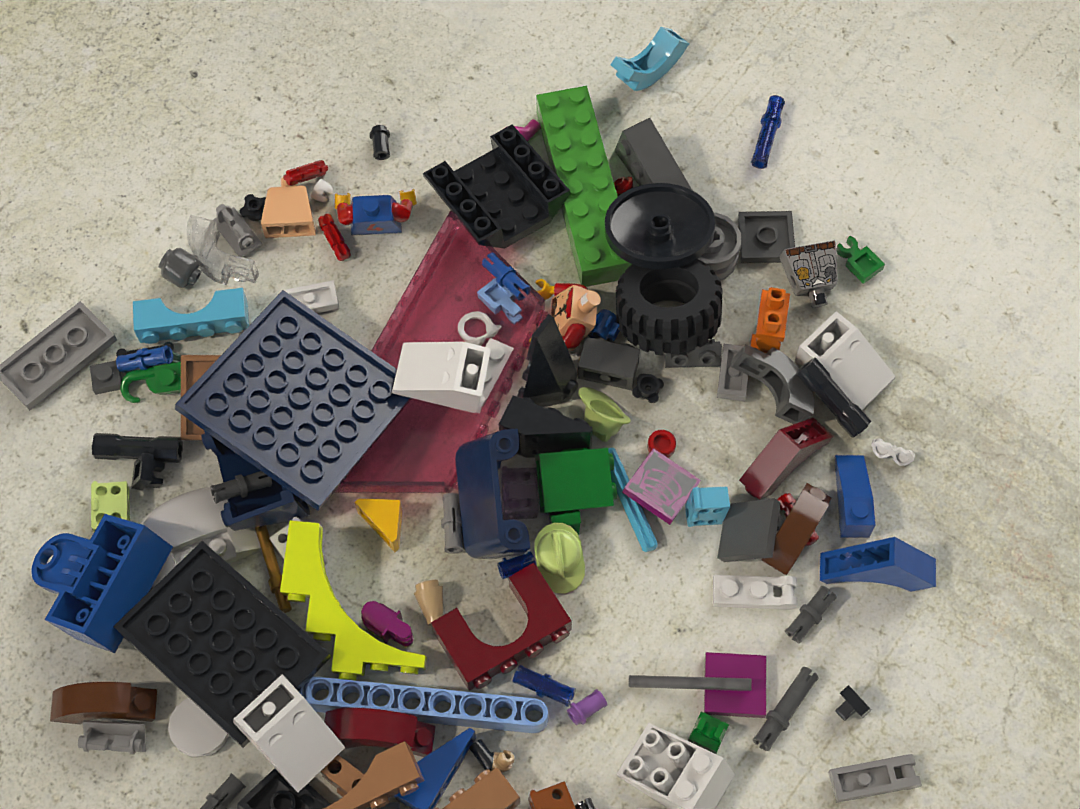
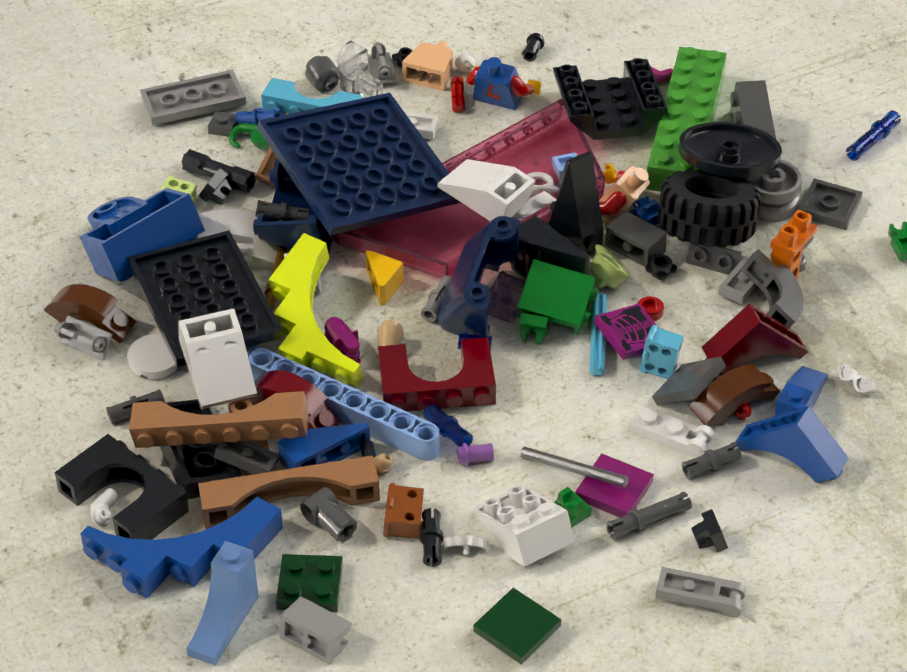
camera: 25 degrees right, 20 degrees down
(305, 172) = (459, 44): red axle -> none
(506, 276) = (578, 145): blue pin -> none
(560, 557) = (513, 347): yellowish green piece -> none
(652, 62) = (795, 62): medium azure arch -> none
(811, 270) = (855, 231): light grey torso -> none
(847, 413) = (812, 299): black axle -> none
(848, 359) = (846, 300): white slope -> none

